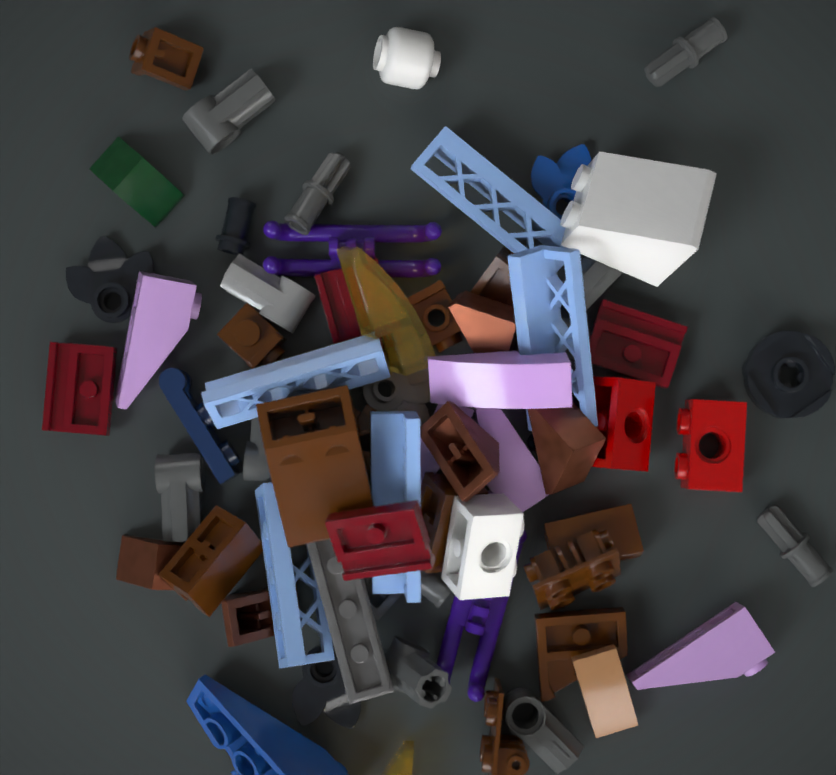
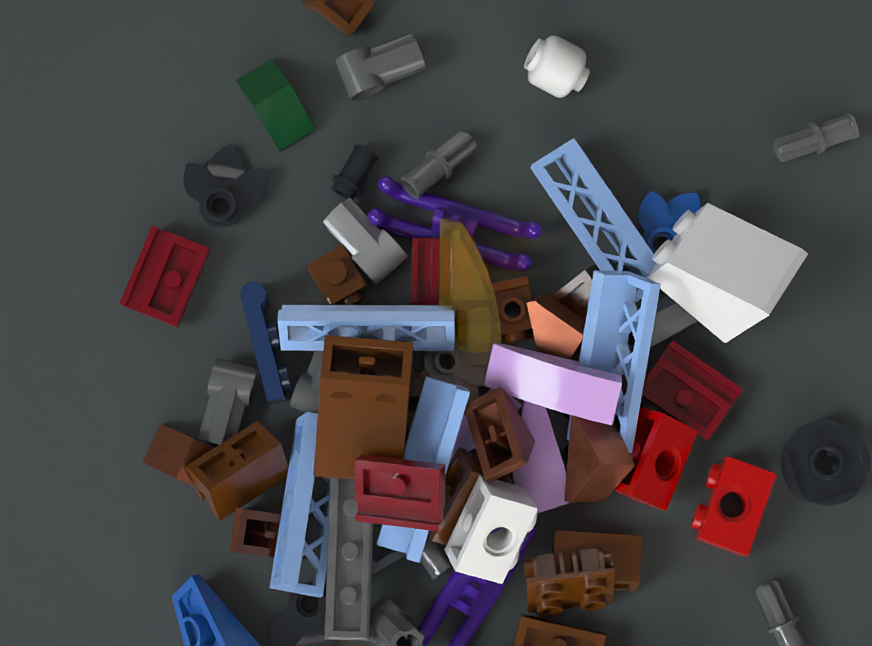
camera: 20 degrees right, 5 degrees down
(155, 327) = (253, 240): lavender slope -> none

